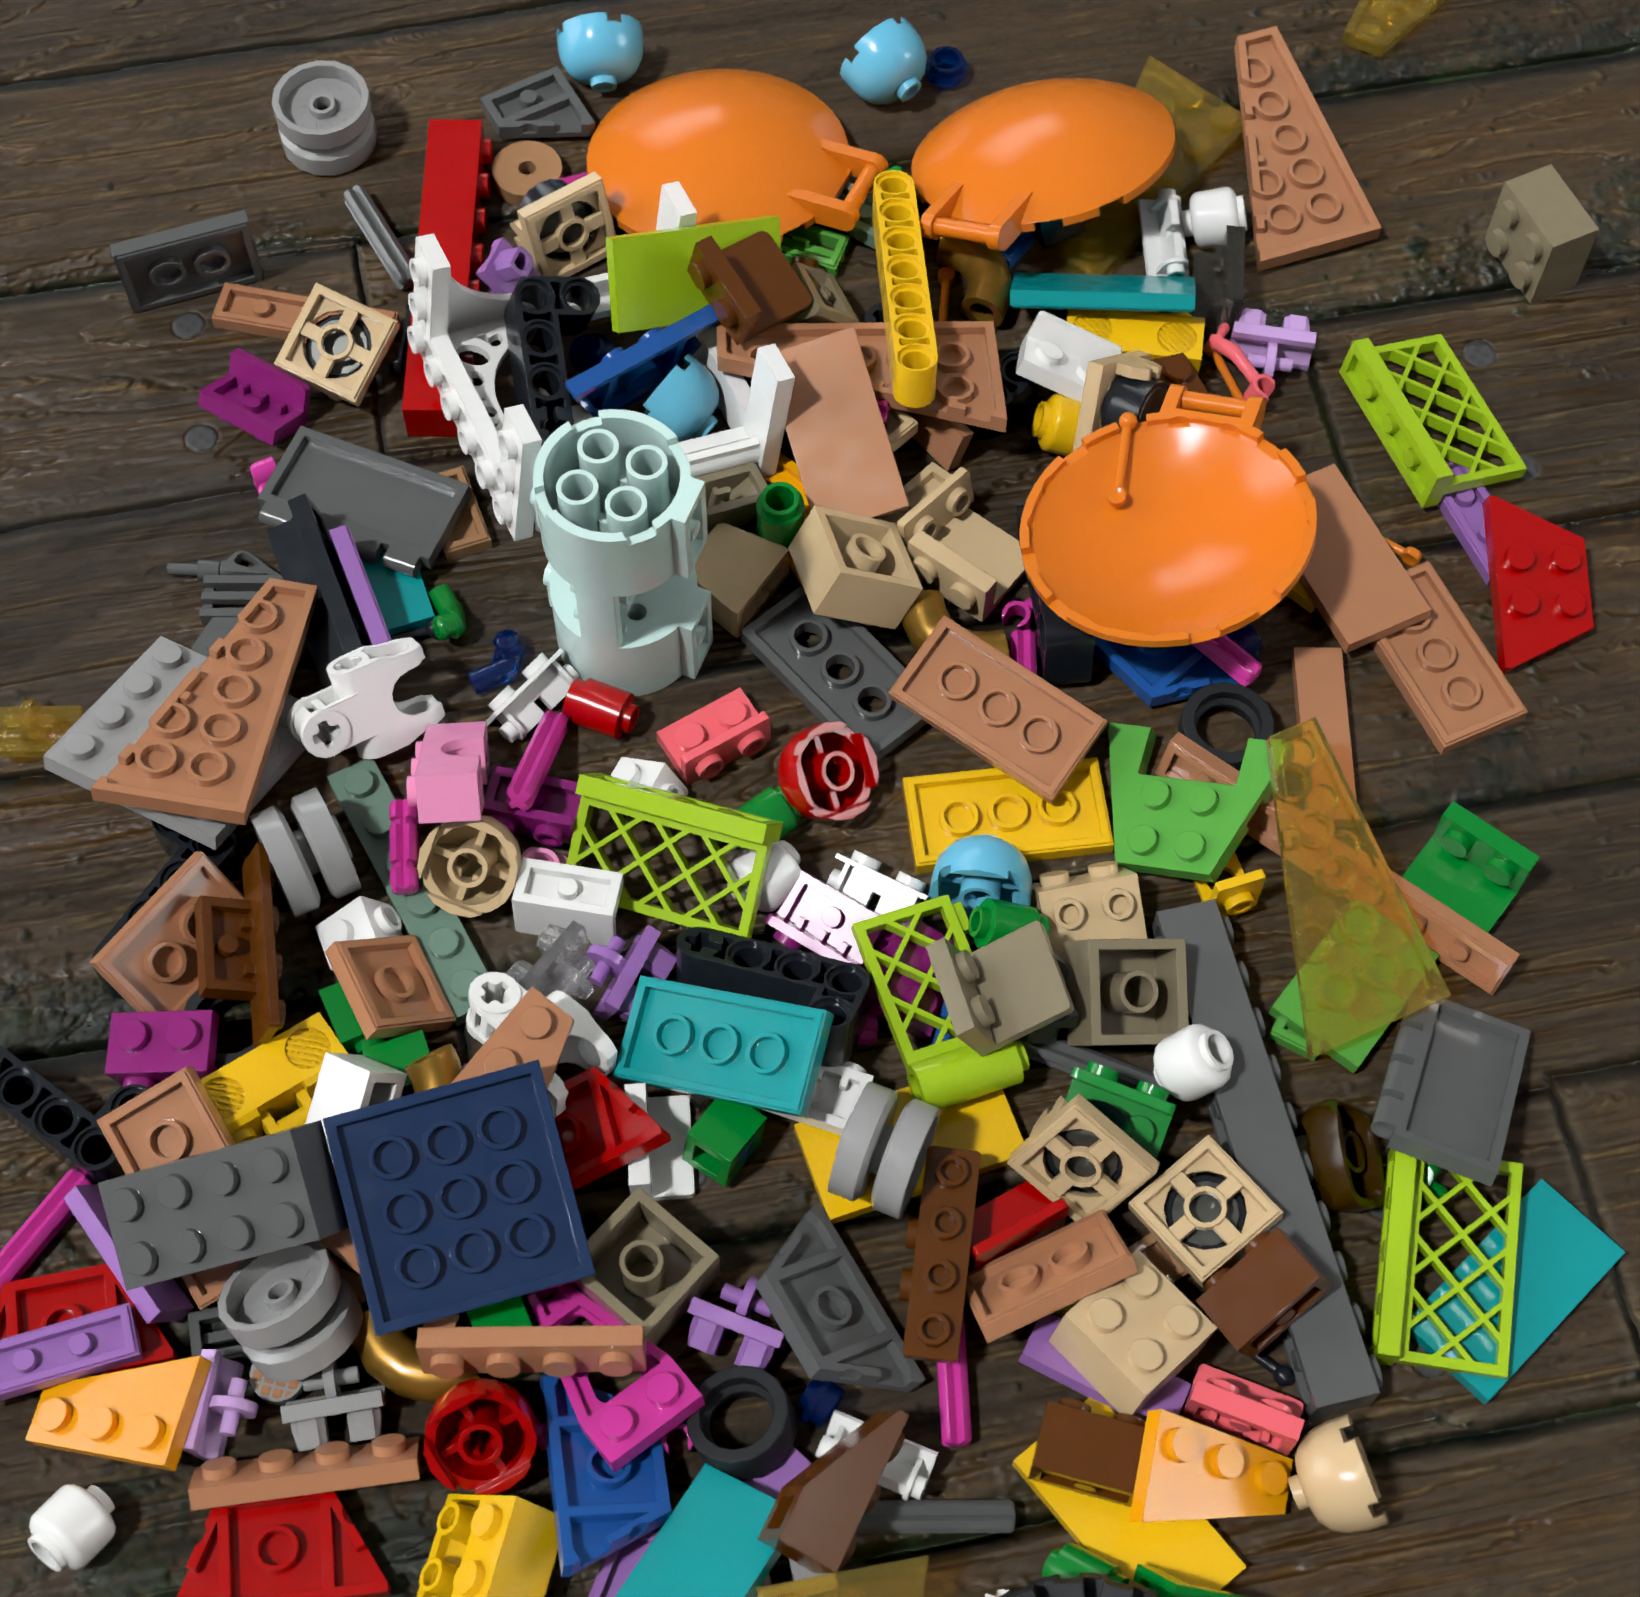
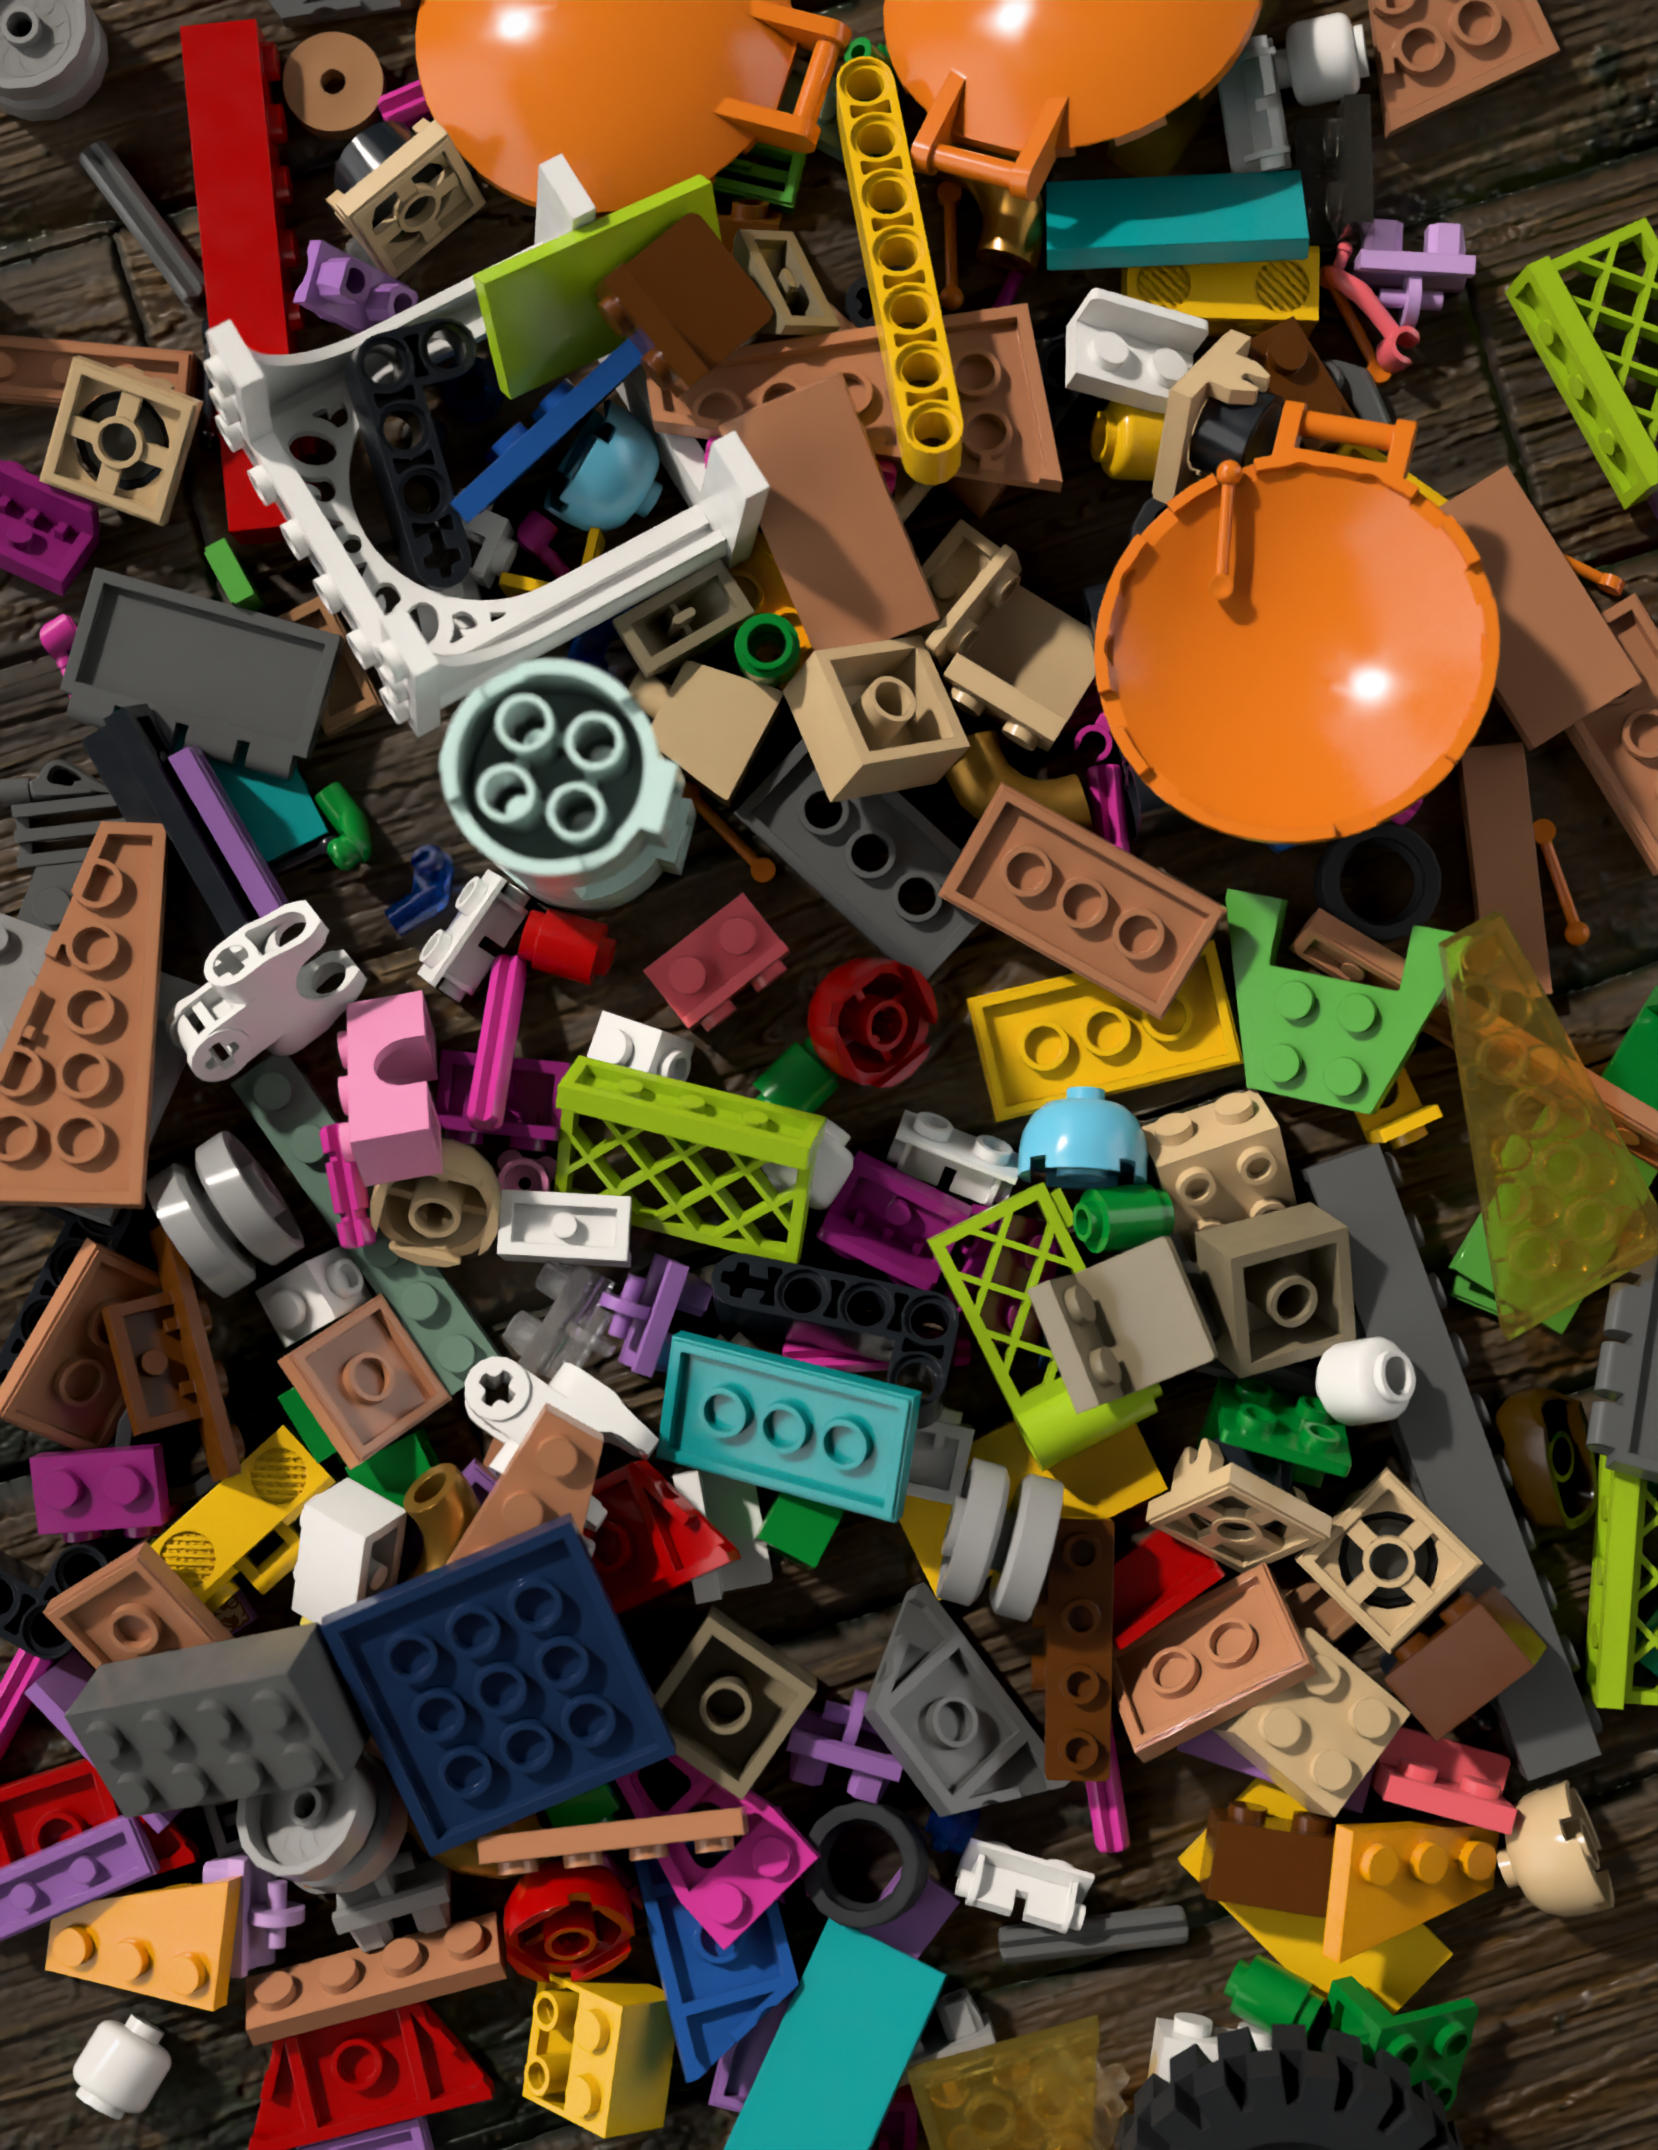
camera: 10 degrees left, 25 degrees up
(397, 439) = (234, 576): none -> bright green tile
(756, 678) = (762, 868): none -> orange hinge
(826, 1501) = (979, 1967): reddish brown slope -> none
(1378, 784) = (1576, 932): none -> orange hinge

